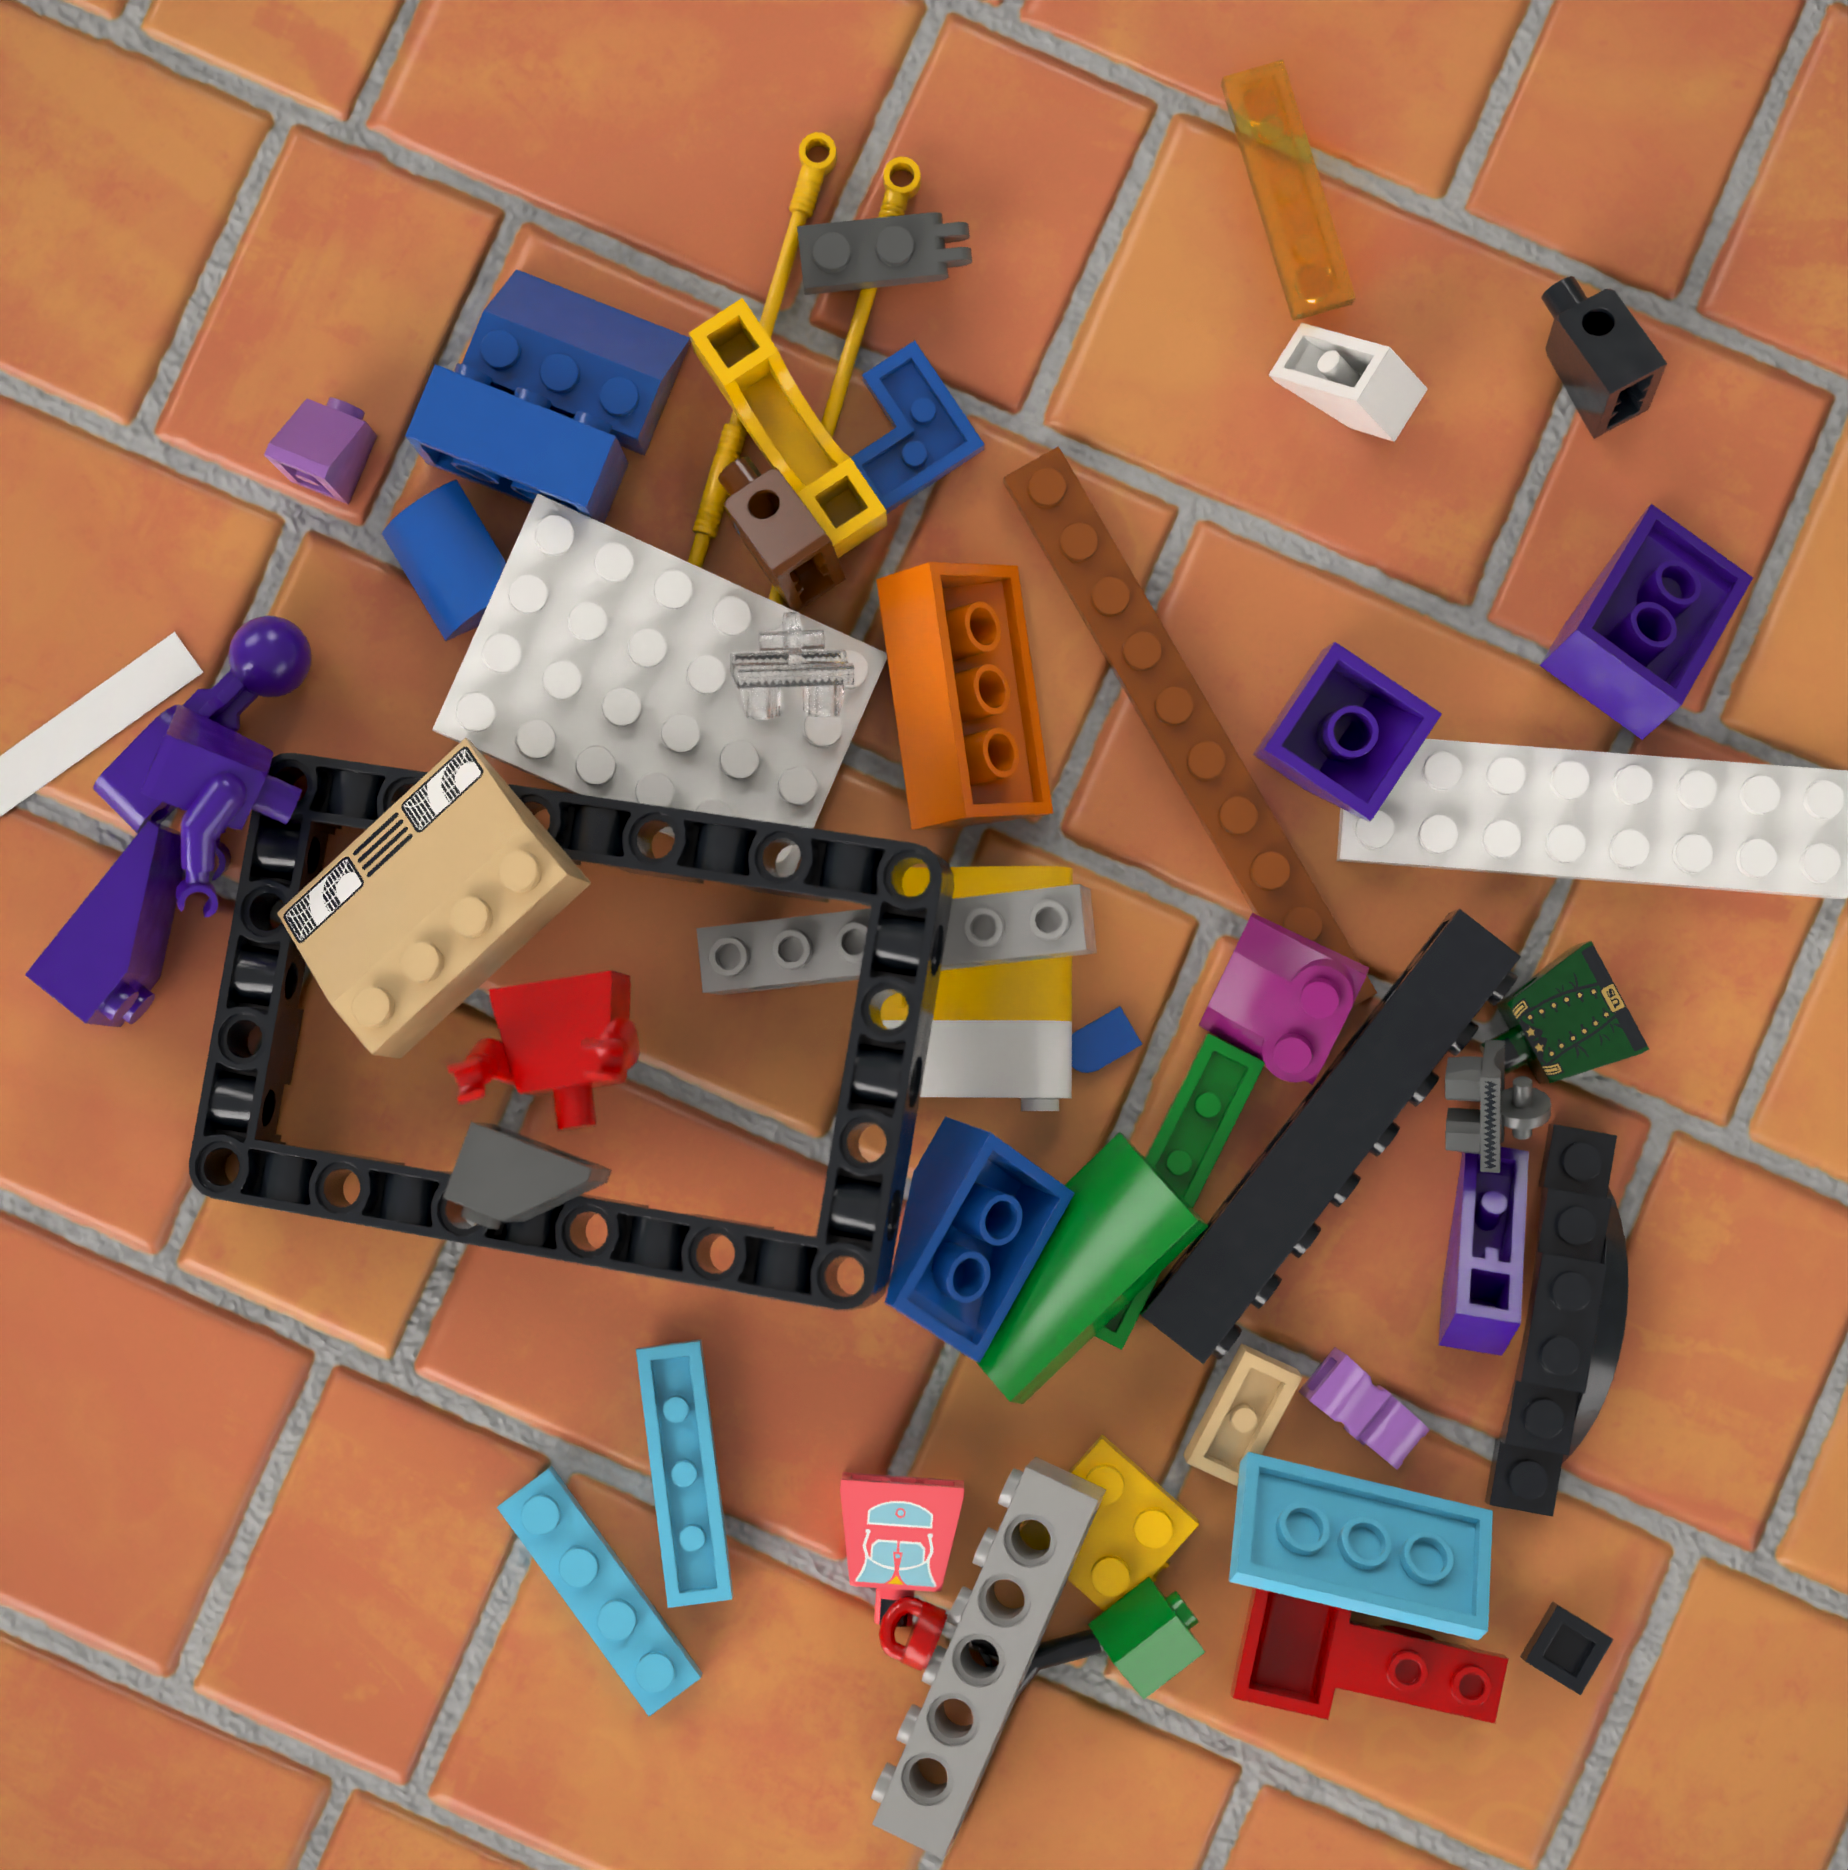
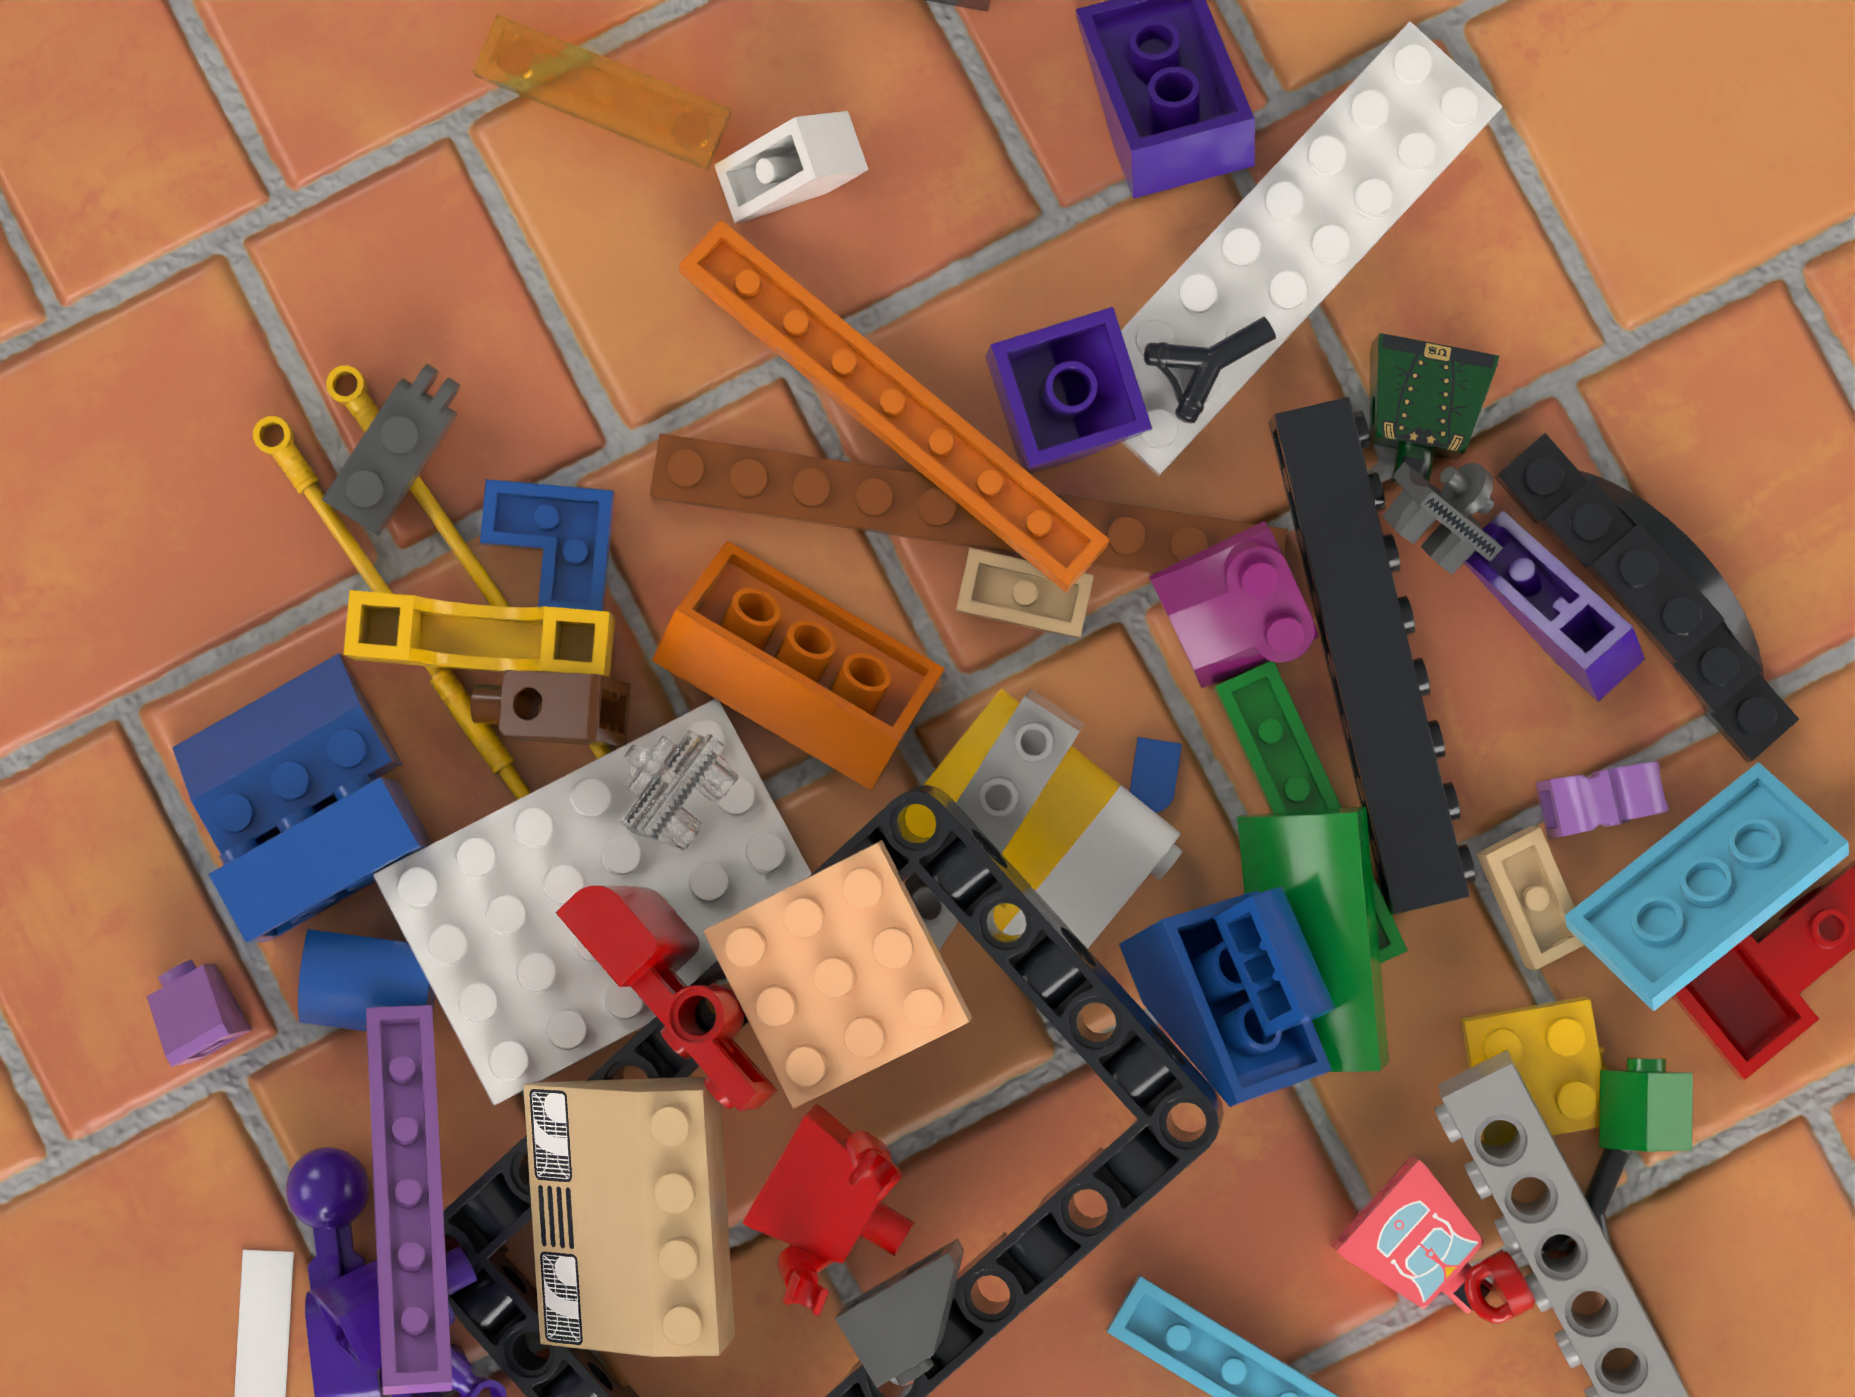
camera: 55 degrees left, 0 degrees up
(301, 718) = (408, 1201): none -> medium lavender plate
(648, 743) = (642, 948): none -> red plate
(743, 910) = (838, 974): none -> light nougat plate
(1028, 1248) = (1274, 961): none -> blue brick
(1161, 827) = (1021, 595): none -> tan plate
(1225, 609) = (894, 406): none -> orange plate
(1455, 824) = (1205, 363): none -> black piece

